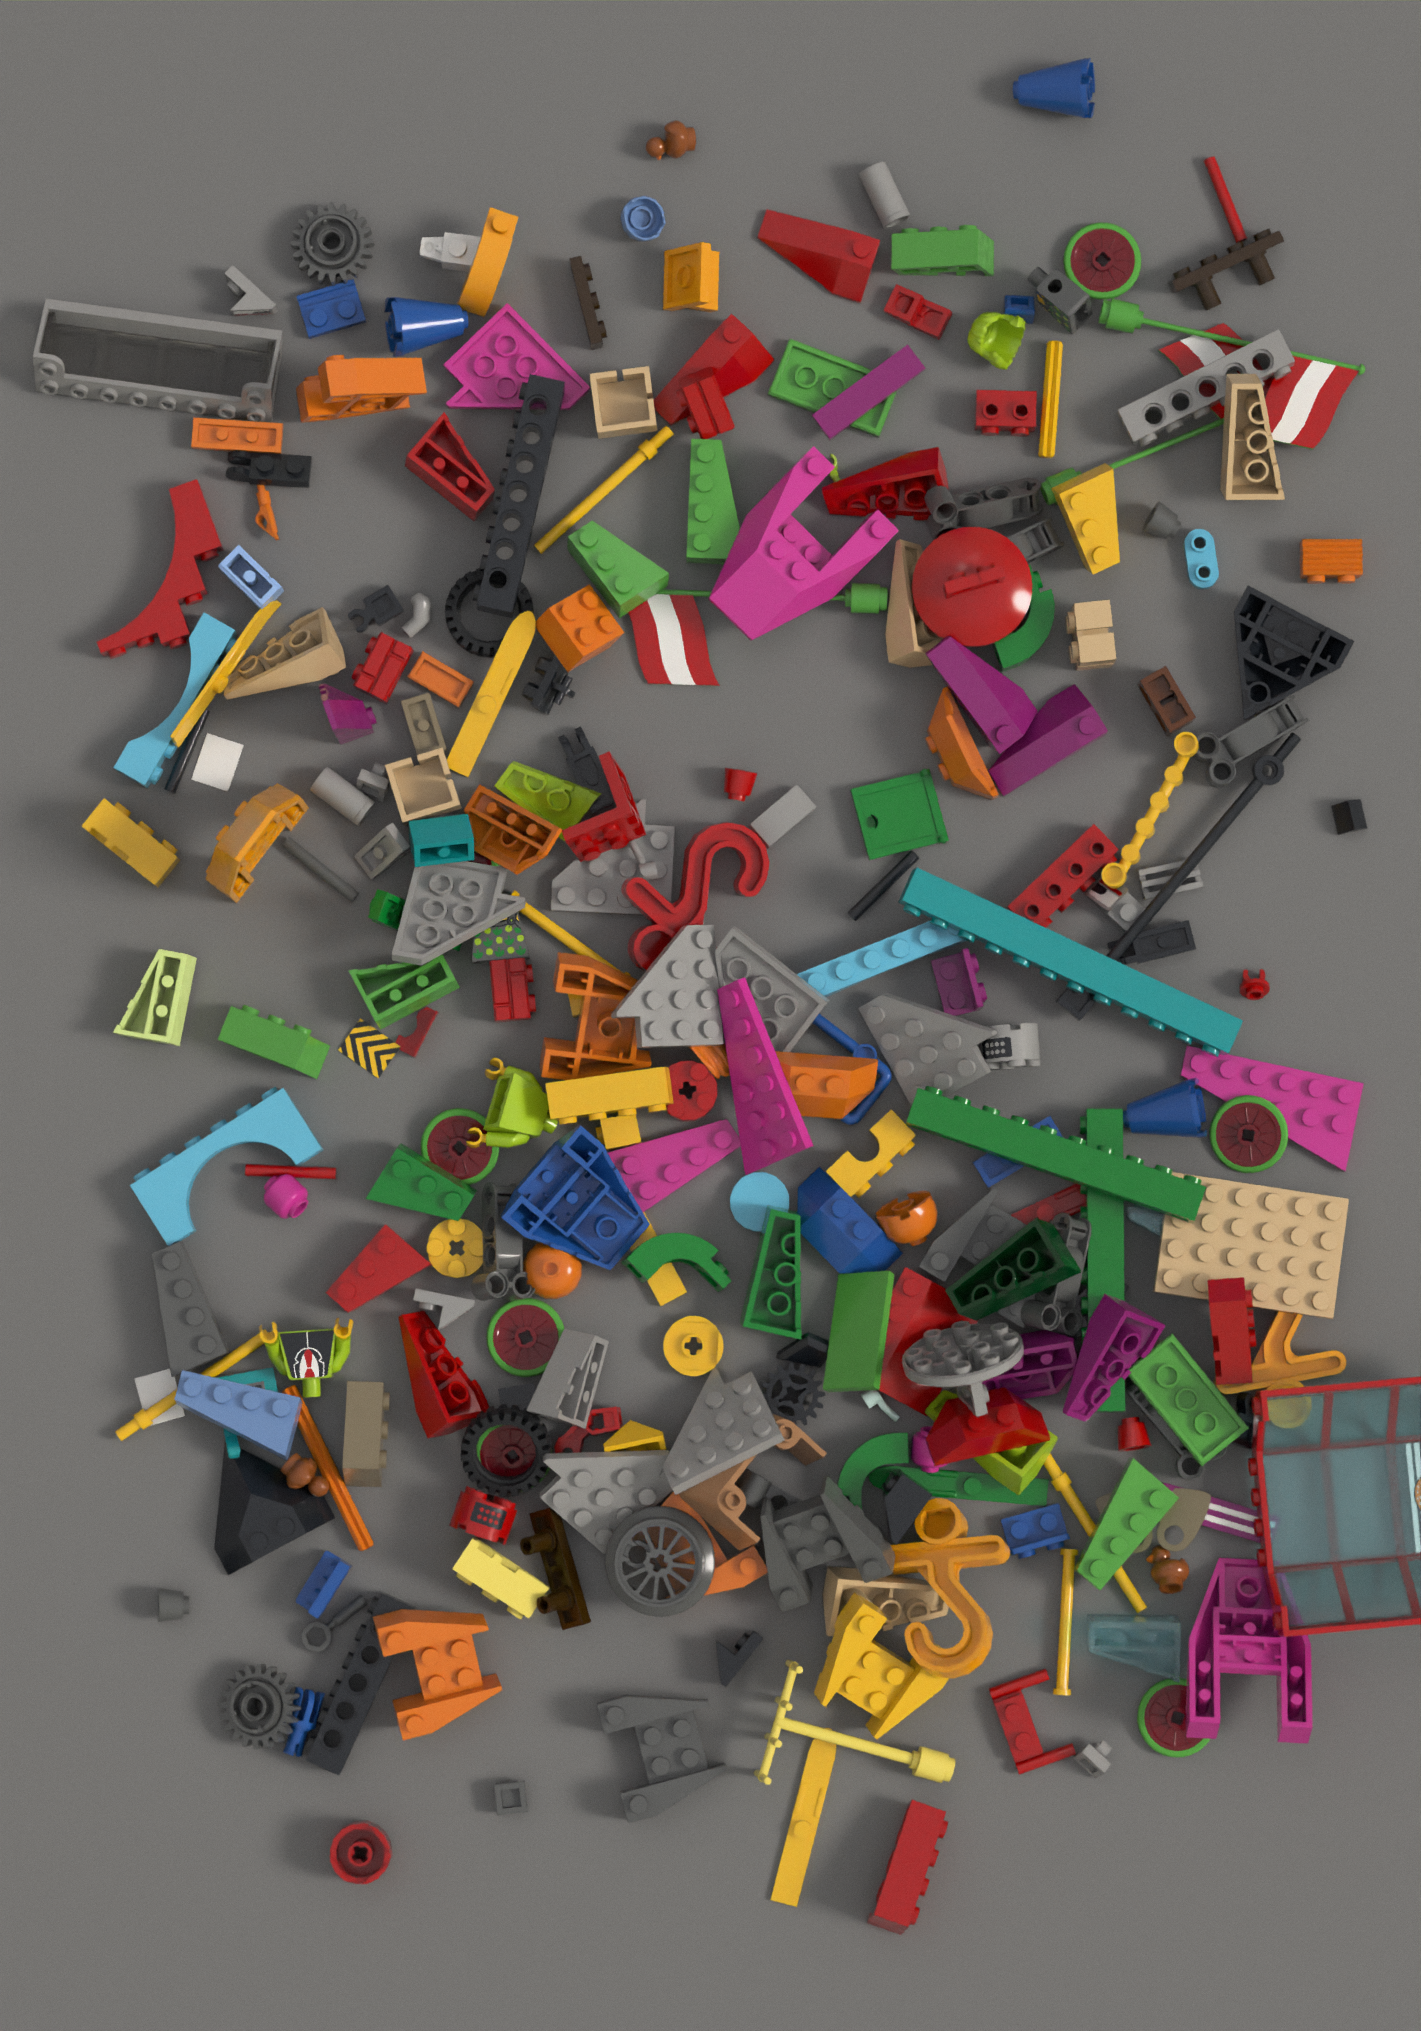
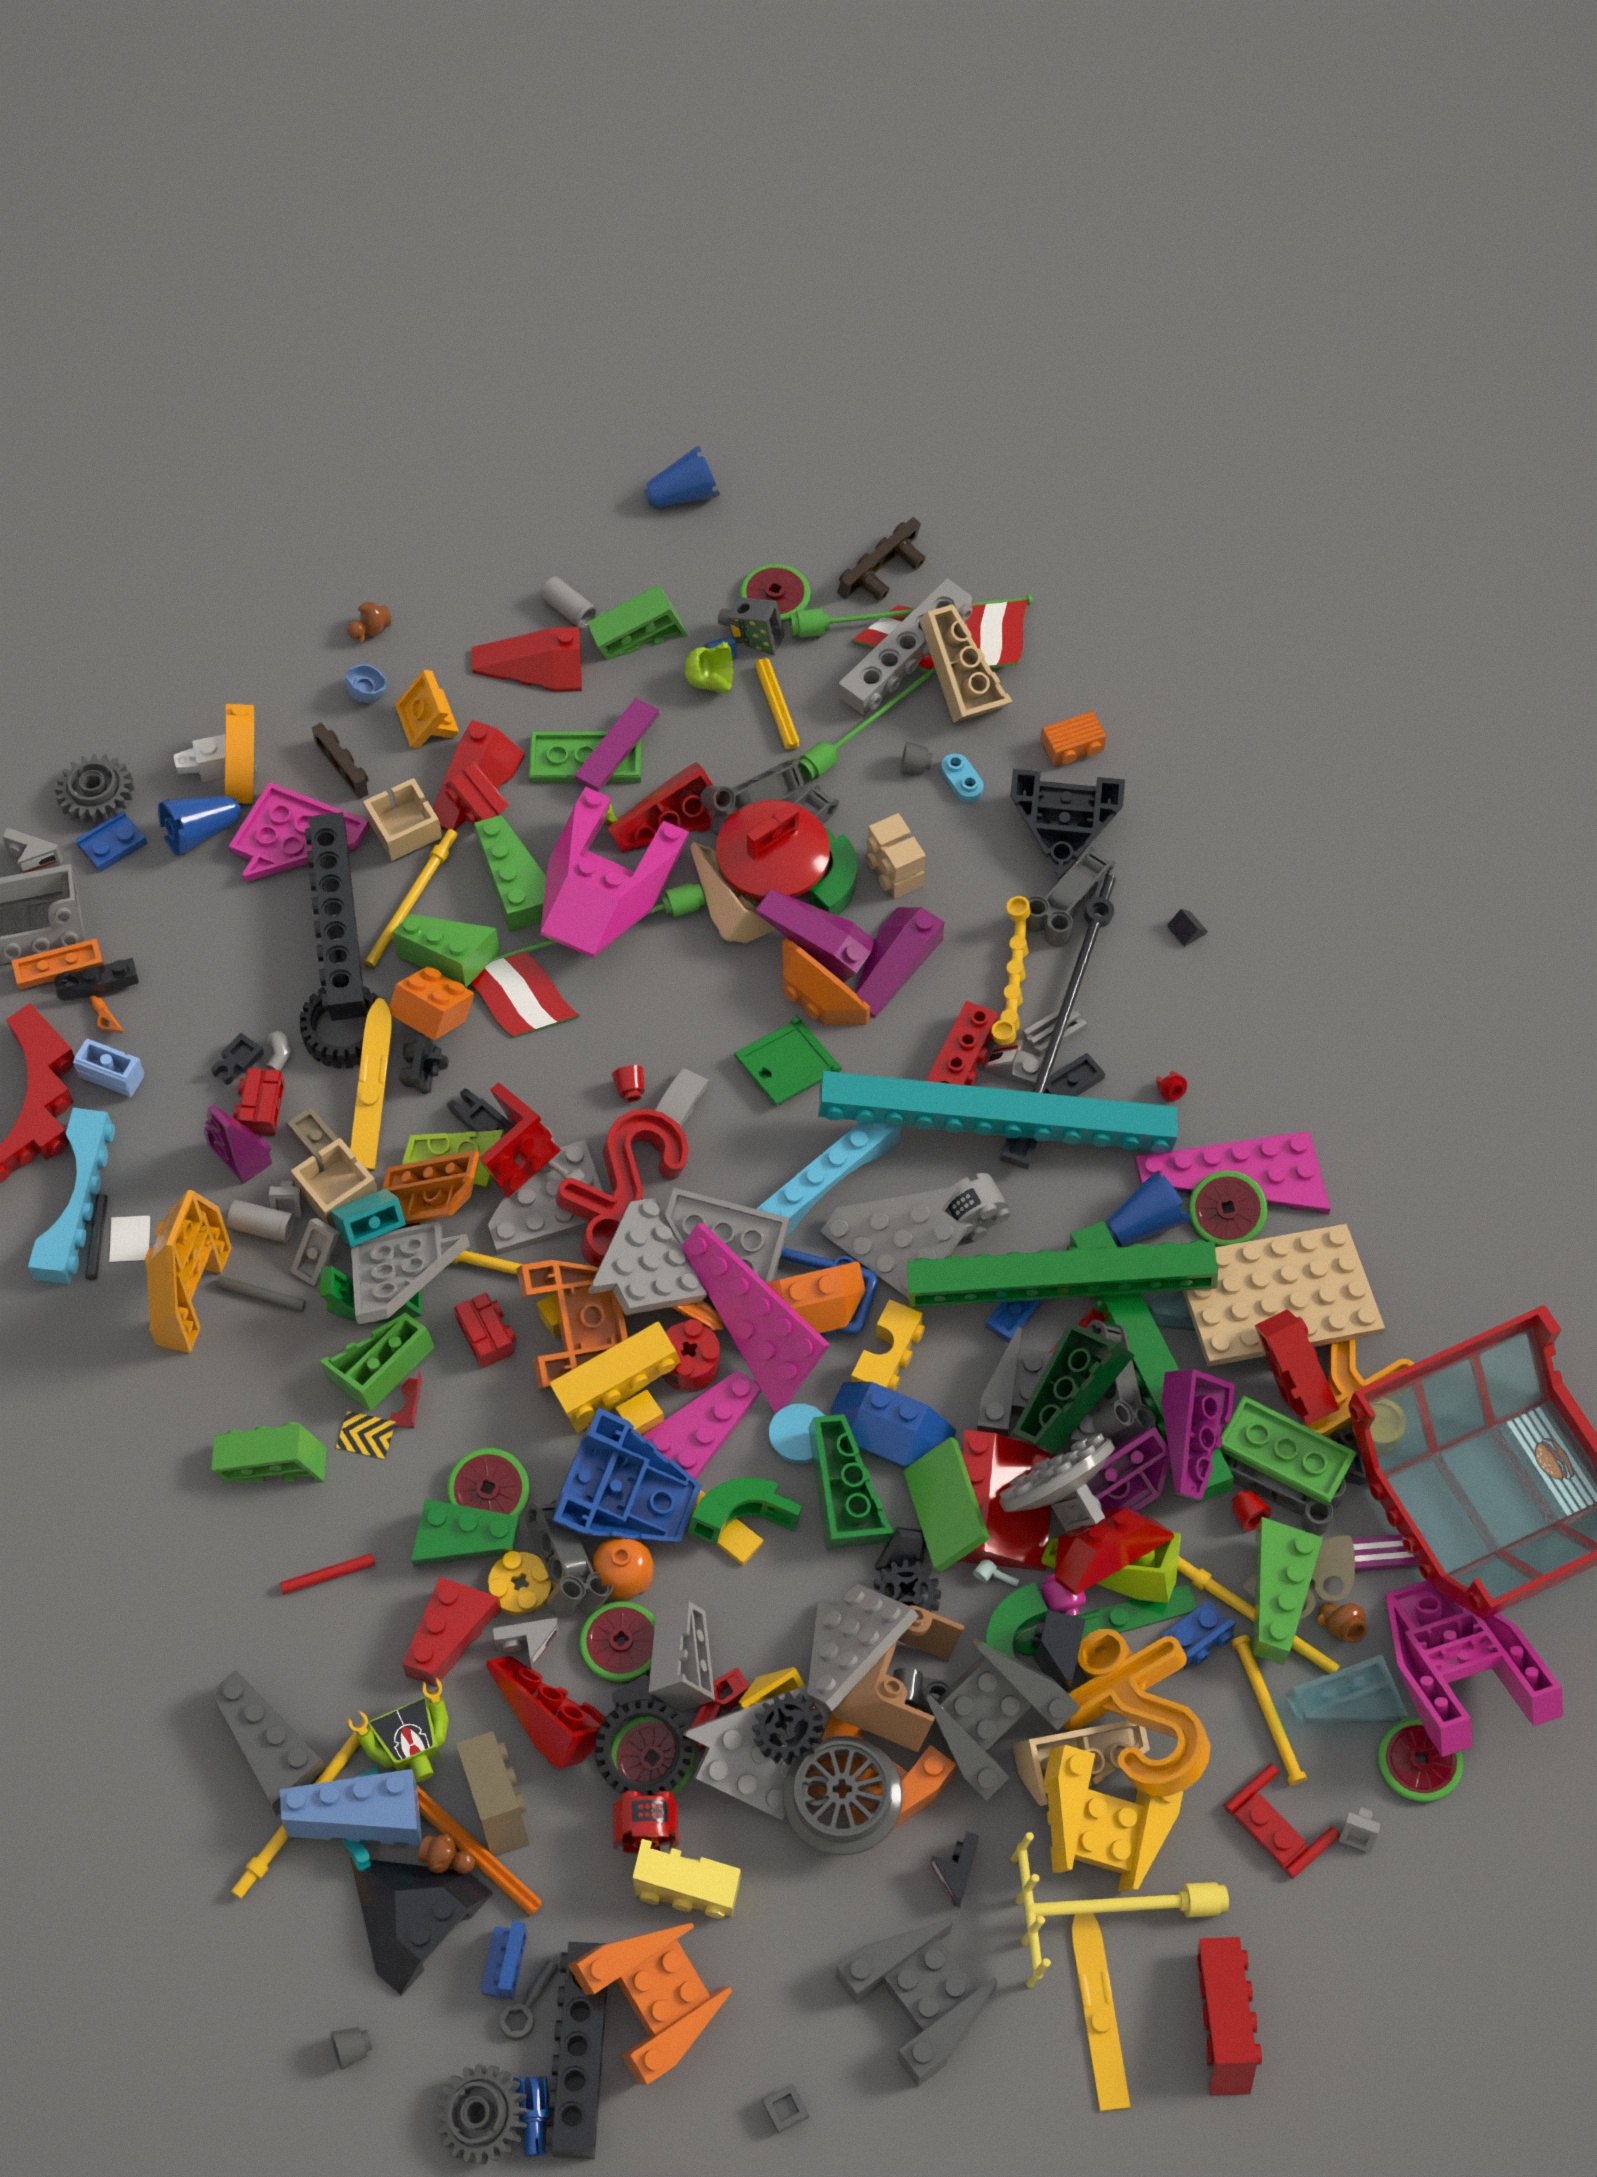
camera: 20 degrees left, 25 degrees down
(132, 841) = (64, 1327): yellow wedge -> none
(153, 1389) = (259, 1833): white sticker -> none
(161, 1001) = (142, 1459): yellowish green wedge -> none
(168, 1188) = (290, 1533): medium azure arch -> none
(220, 677) = (108, 1153): yellow piece -> none
(285, 1196) = (330, 1594): dark pink head -> none
(299, 657) = (178, 1120): tan wedge -> none
(359, 387) = (167, 873): orange wedge -> none
(440, 679) = (322, 1096): orange tile -> none
(450, 469) = (264, 922): red wedge -> none
(501, 942) = (454, 1286): dark grey torso -> none
(516, 1109) = (529, 1430): lime torso -> none
(560, 1569) = (743, 1849): dark brown plate -> none
(633, 1505) = (802, 1726): none -> black gear
(681, 1333) = (786, 1604): yellow plate -> none
(883, 885) = (798, 1124): black bar -> none
(909, 1219) = (950, 1391): orange cylinder -> none
(917, 312) = (631, 679): red slope -> none
(958, 983) = (905, 1169): magenta bracket -> none
(1005, 412) = (742, 722): red brick -> none
(1091, 516) = (853, 768): yellow wedge -> none
(1166, 701) = (983, 886): reddish brown brick -> none
(1225, 199) = (855, 517): red bar -> none

